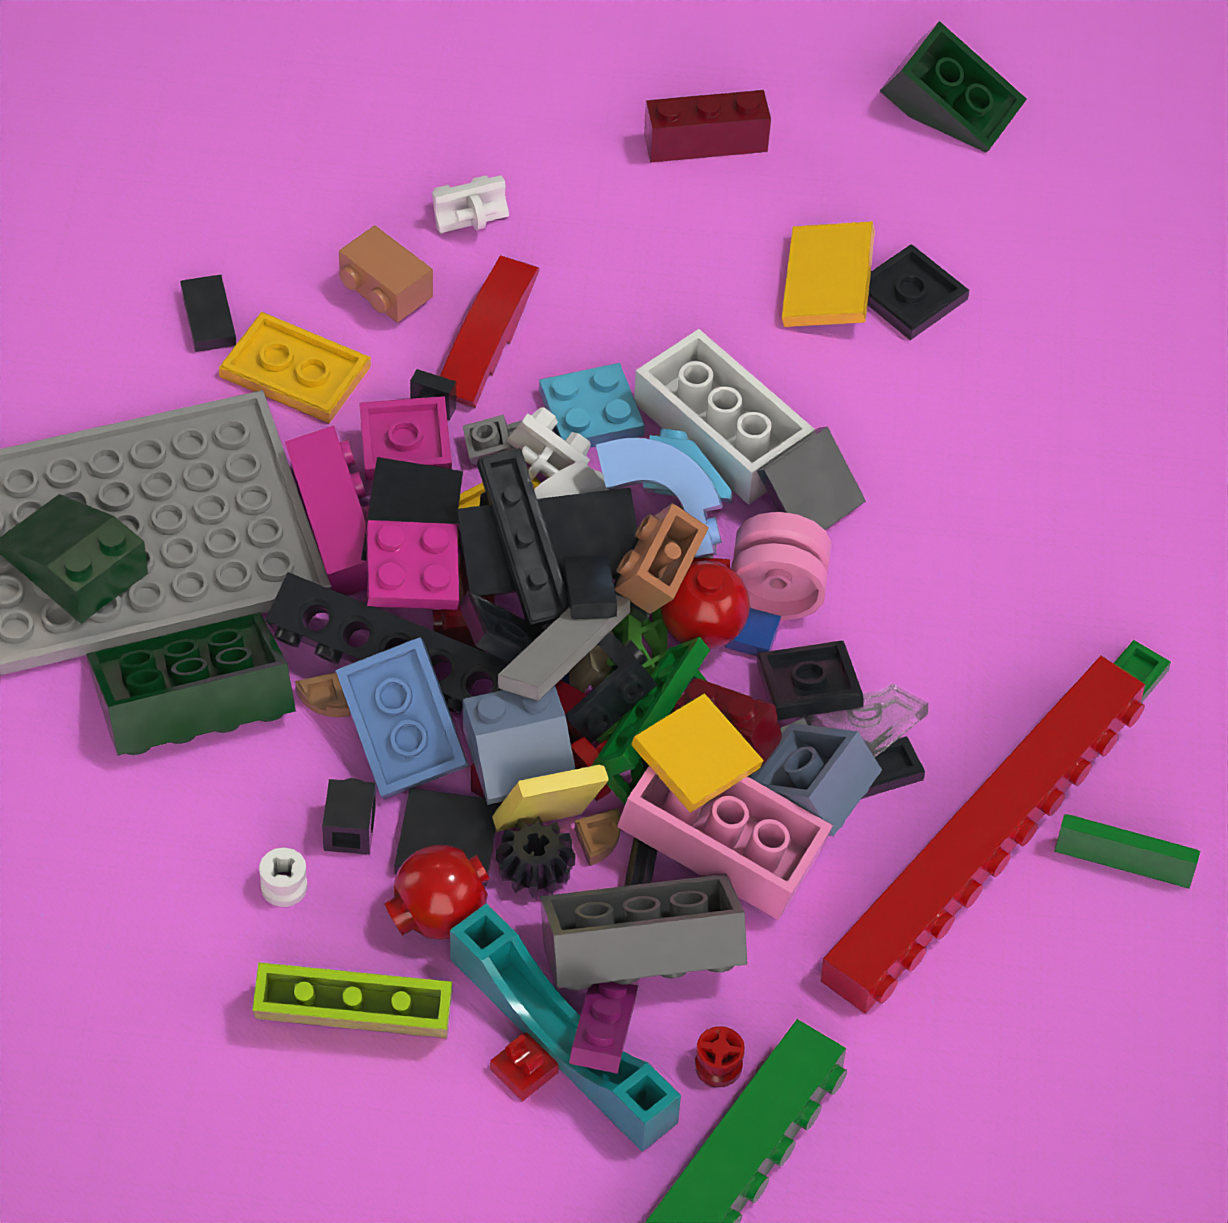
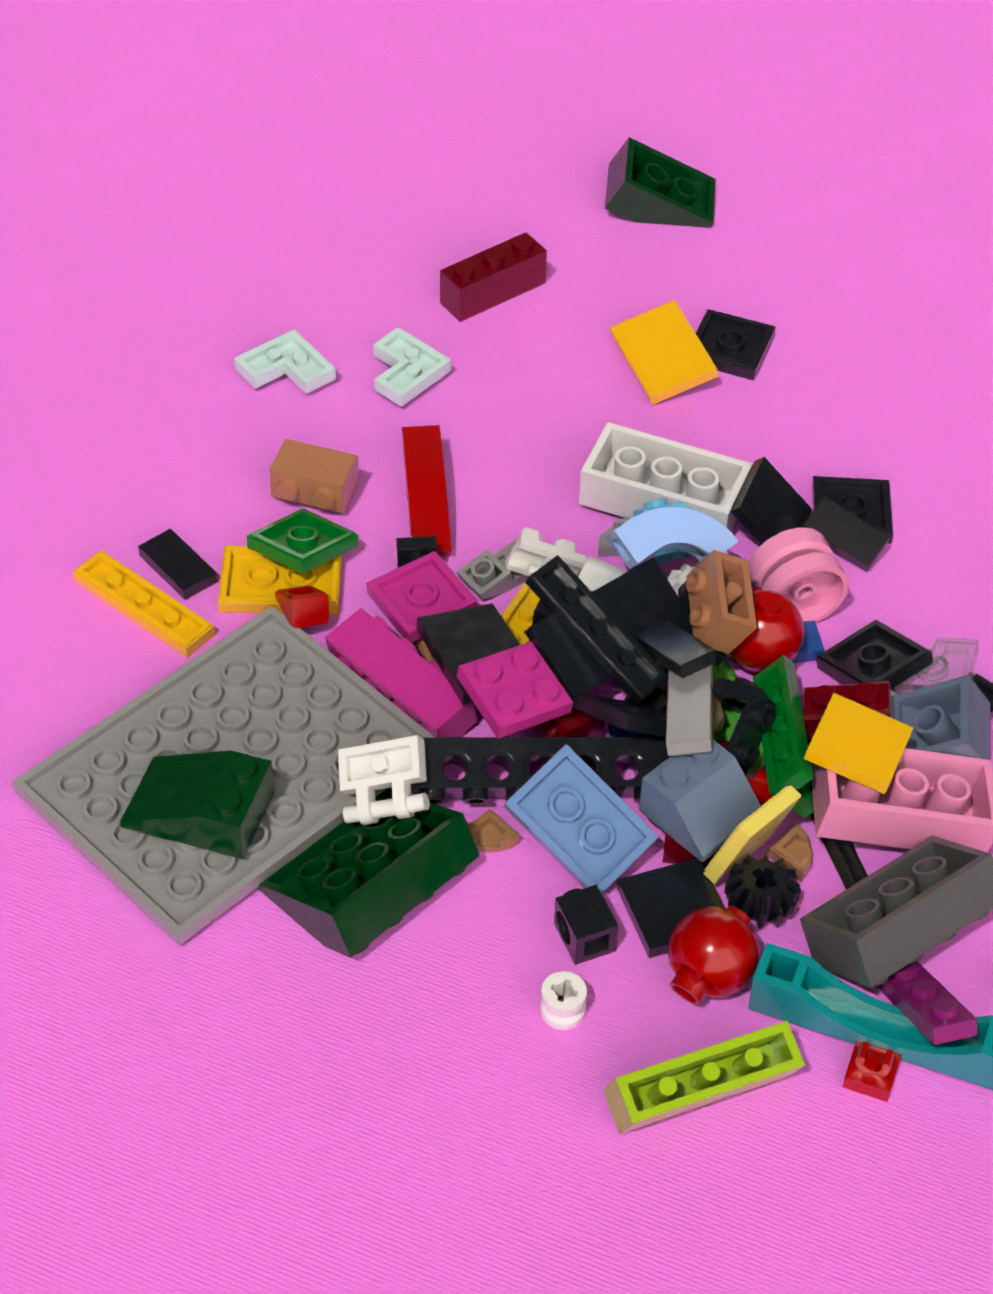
camera: 25 degrees left, 5 degrees down
(153, 340) = (144, 603): none -> yellow tile
(242, 587) = (382, 766): none -> white plate
(290, 402) = (304, 605): none -> red slope
(333, 336) = (302, 540): none -> green tile
(443, 134) = (286, 355): none -> light aqua plate
(470, 204) = (345, 399): white hips -> none
(563, 198) = (412, 366): none -> light aqua plate
(593, 404) = (551, 512): medium azure plate -> none
(875, 540) = (847, 533): none -> black tile
(908, 517) = (862, 497): none -> black tile

